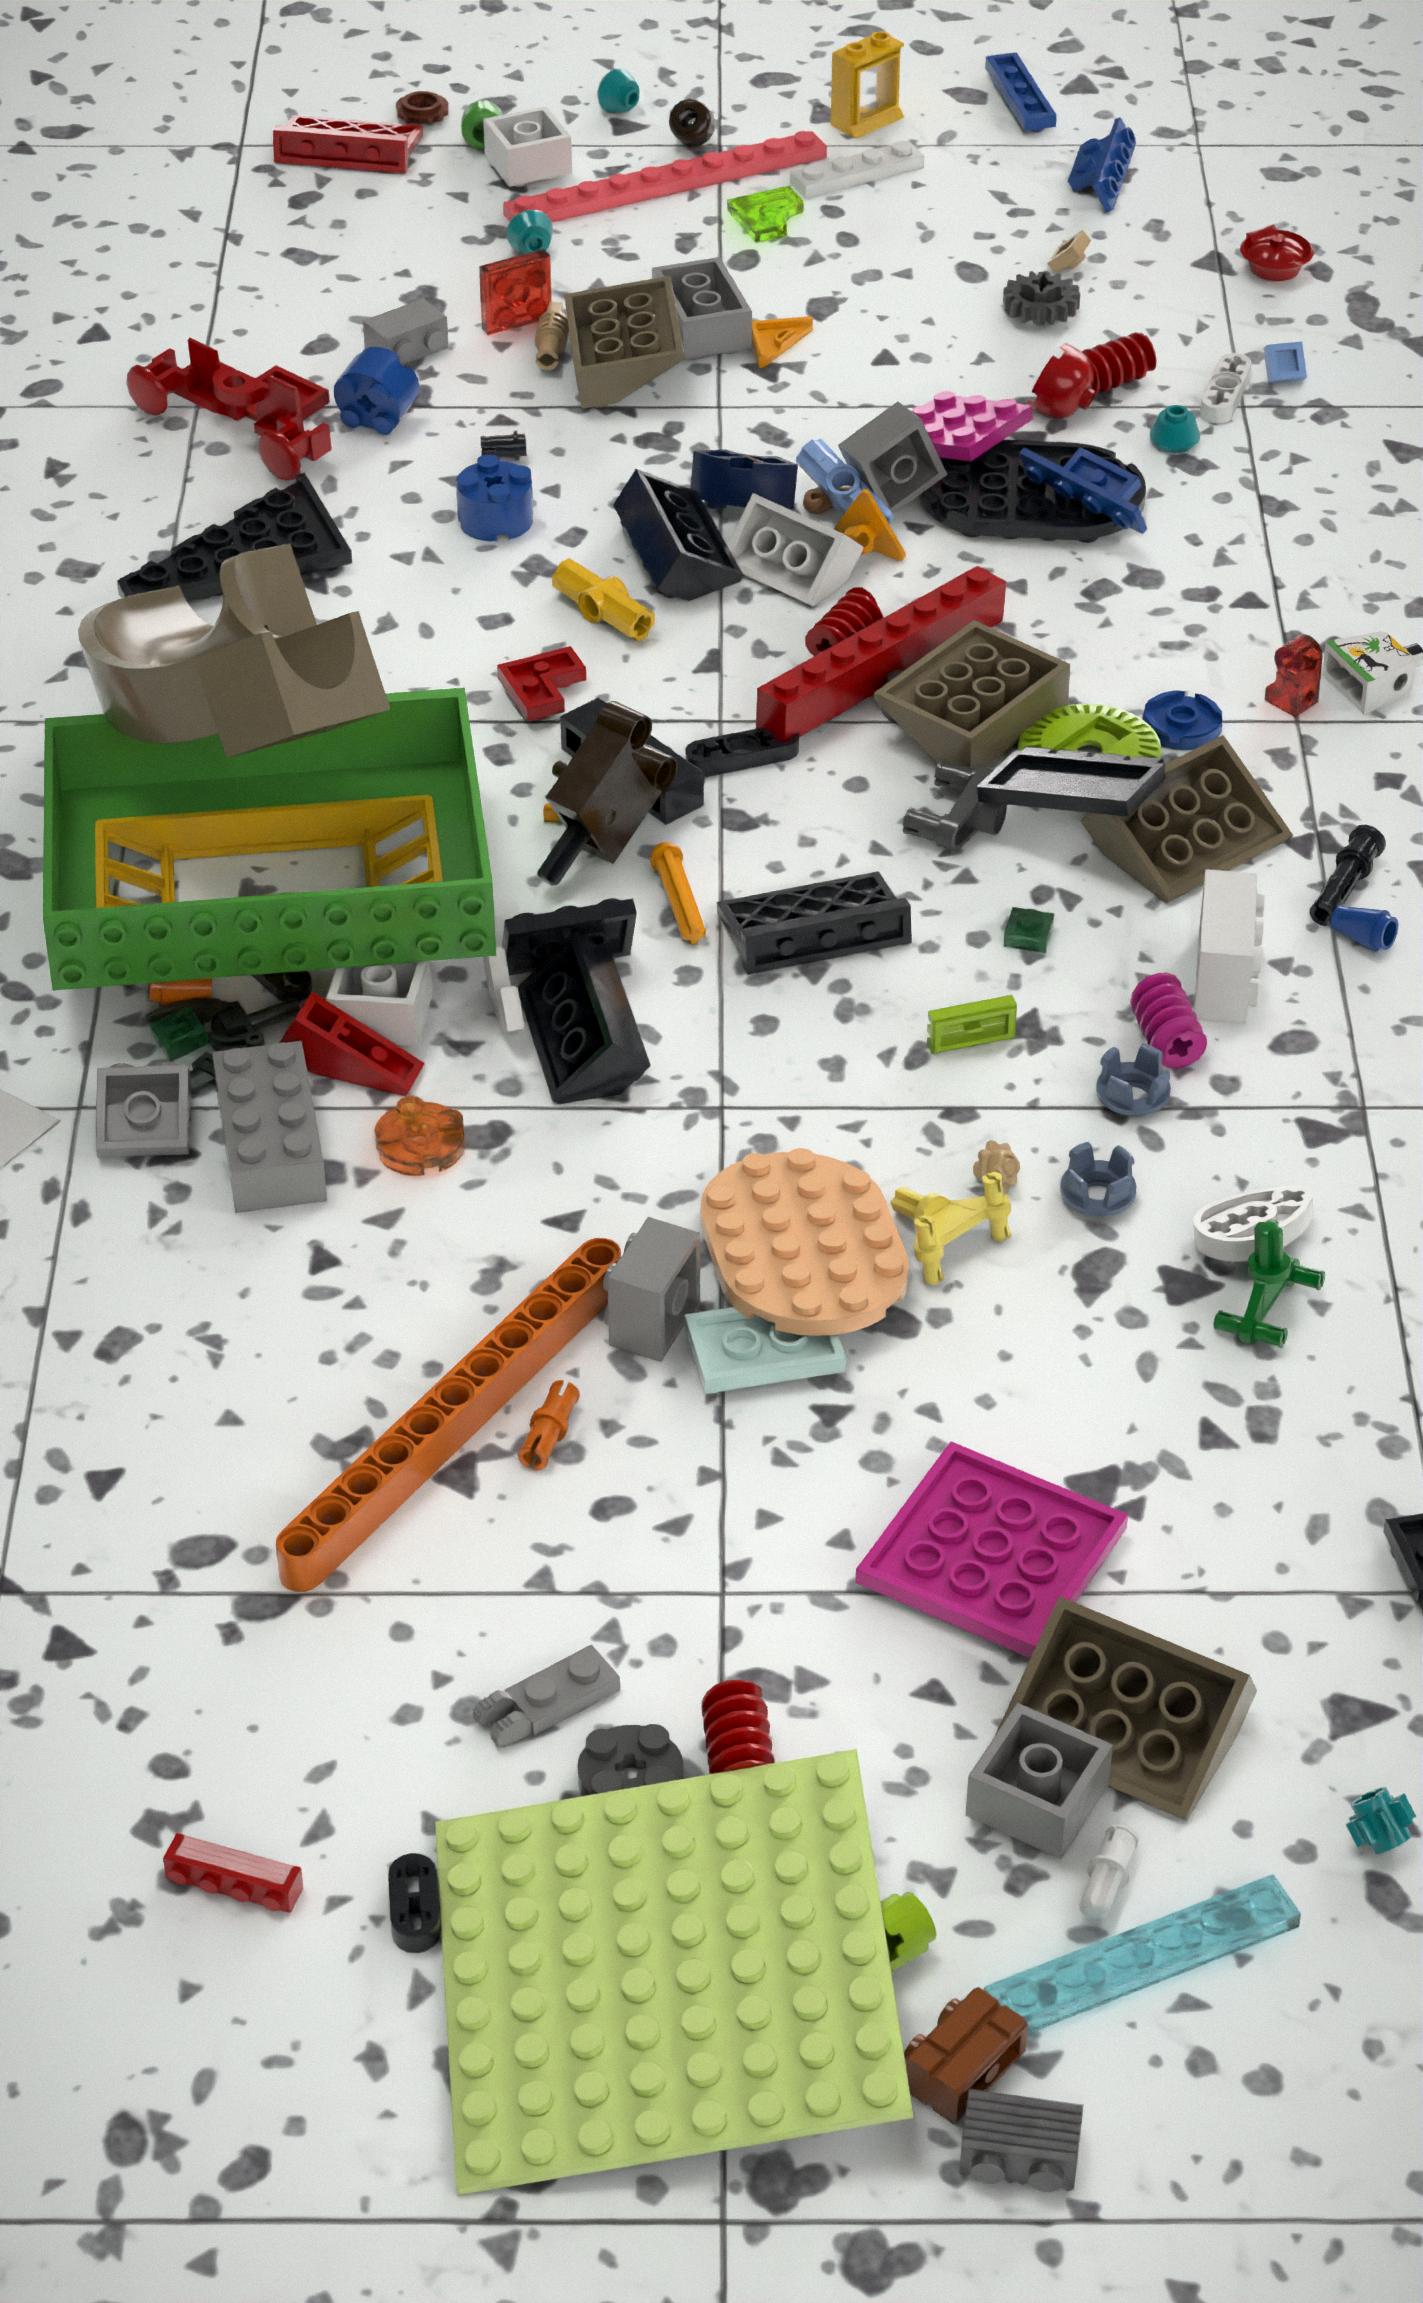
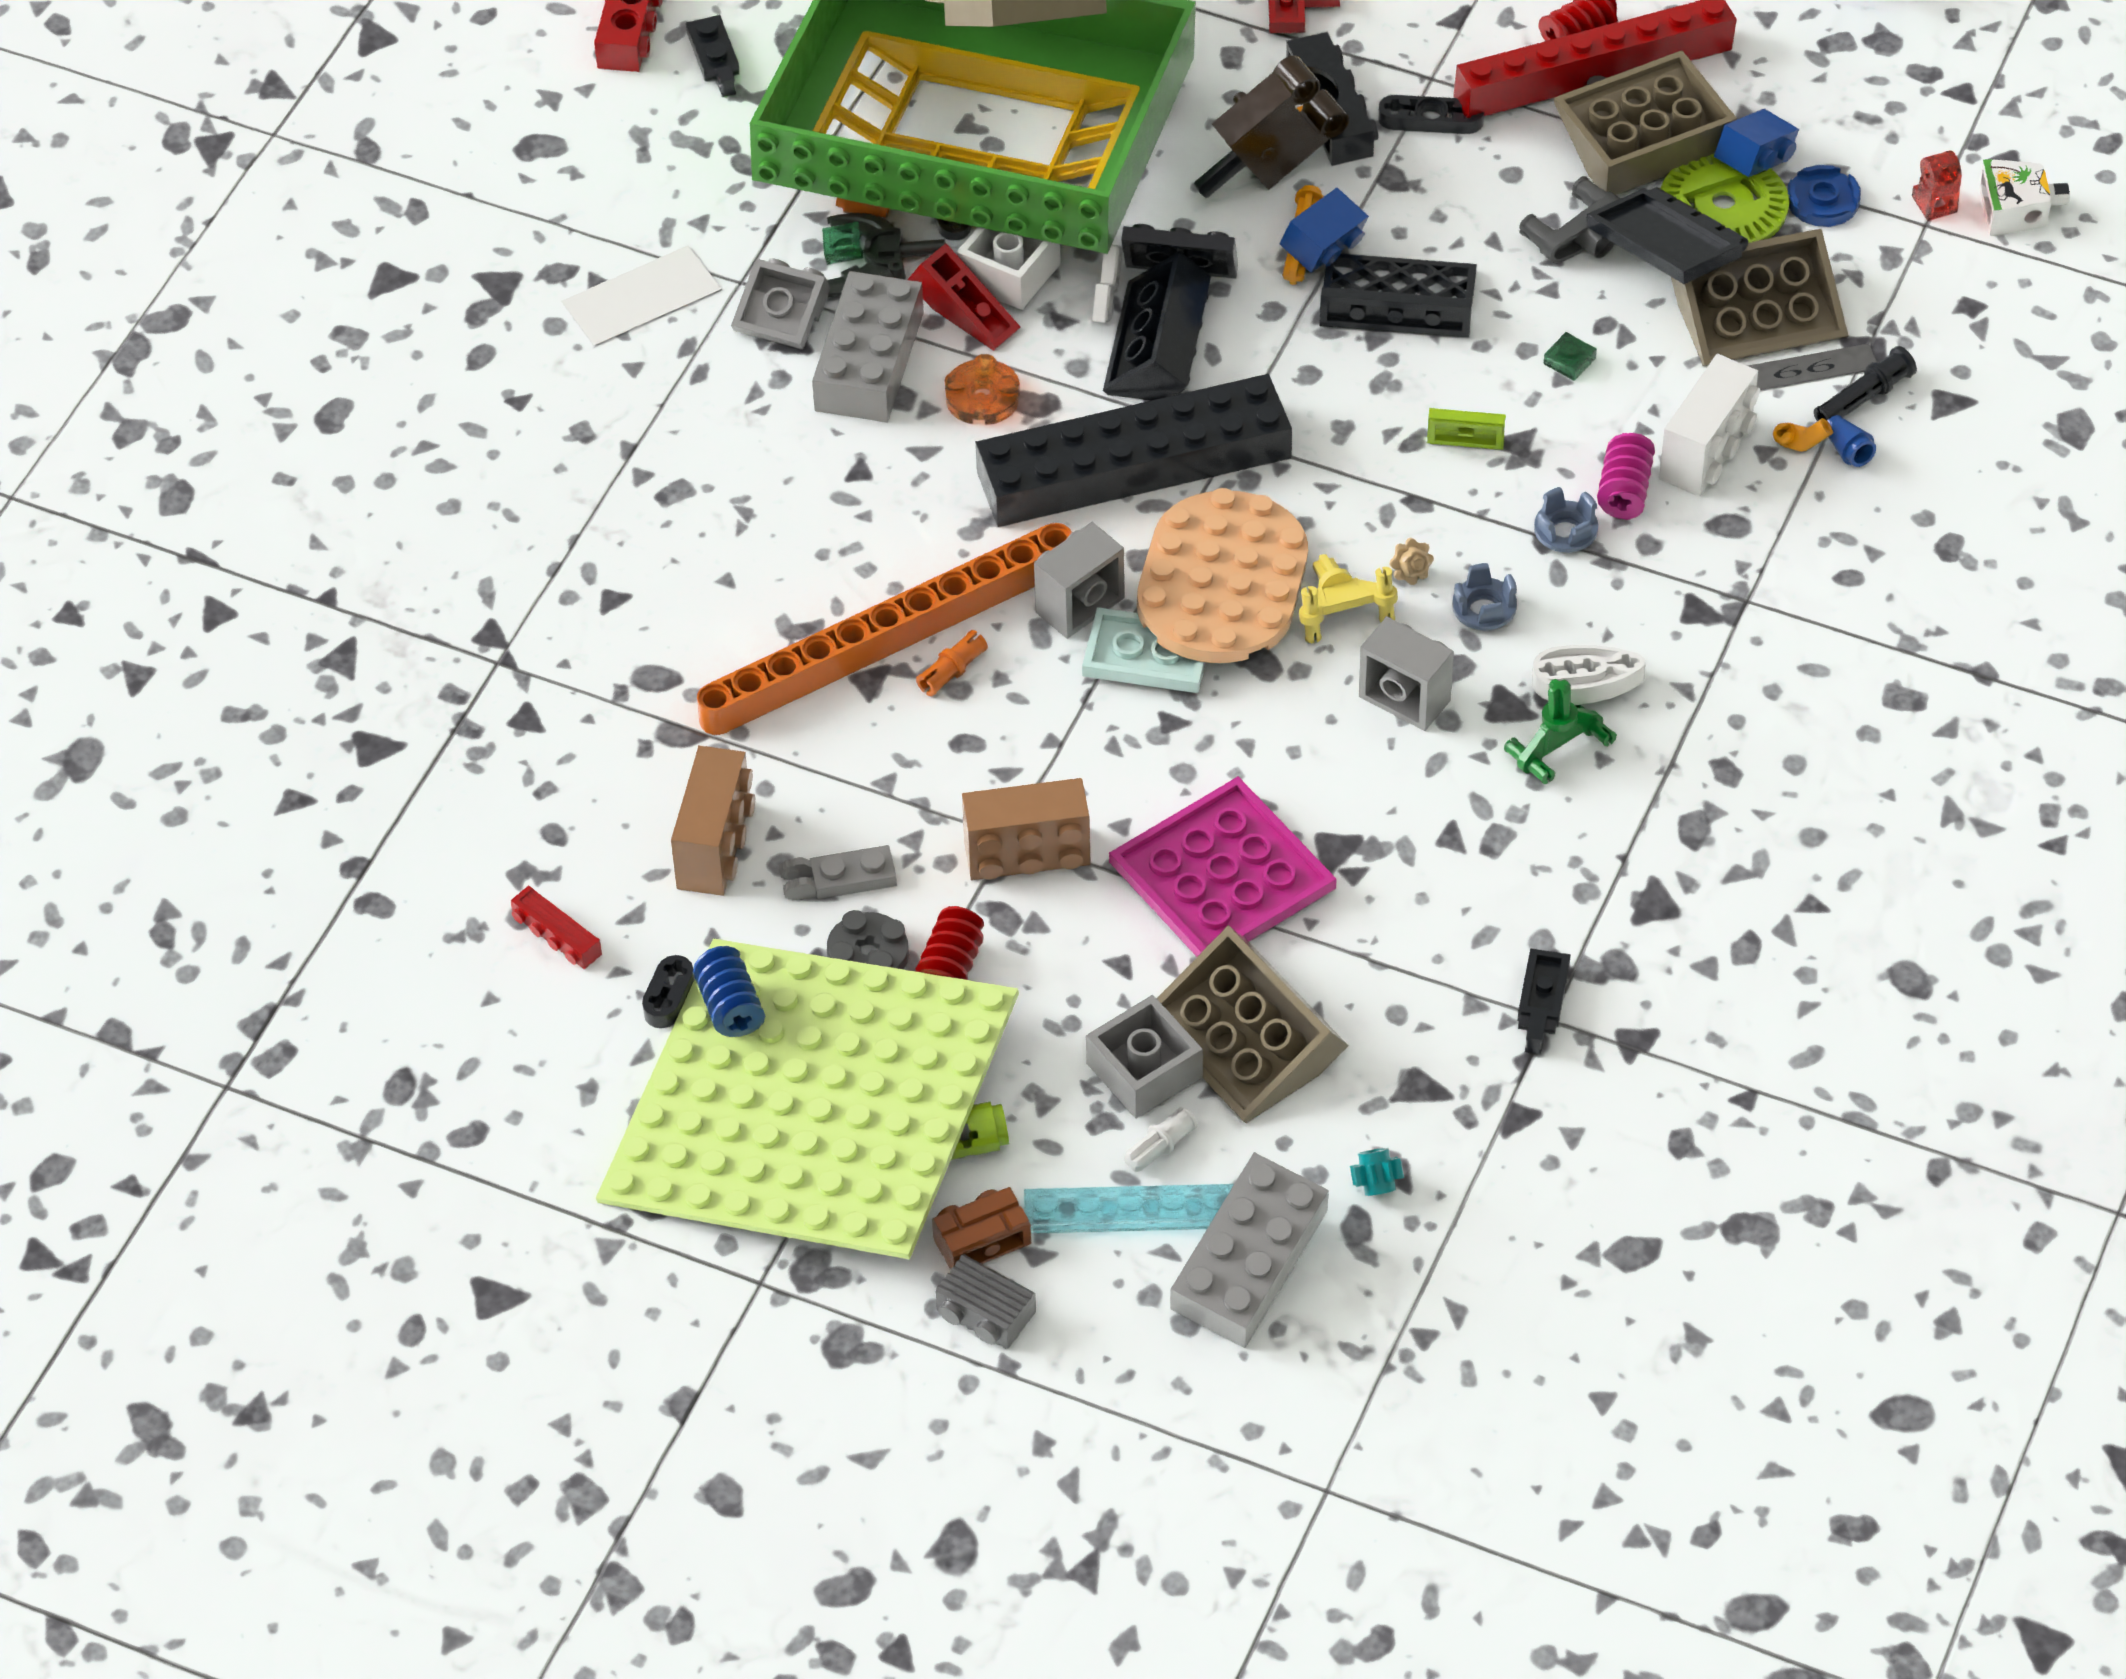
camera: 25 degrees right, 10 degrees up
(373, 1681) = (712, 820): none -> medium nougat brick
(506, 1872) = (728, 992): none -> blue piece
(625, 1146) = (1133, 450): none -> black brick
(710, 877) = (1324, 230): none -> blue brick
(752, 1571) = (1026, 829): none -> medium nougat brick
(1073, 1276) = (1405, 673): none -> light grey brick
(1096, 685) = (1756, 142): none -> blue brick
(1290, 866) = (1813, 366): none -> flat silver sticker
(1303, 1961) = (1249, 1249): none -> light grey brick
(1314, 938) = (1801, 437): none -> light orange arm

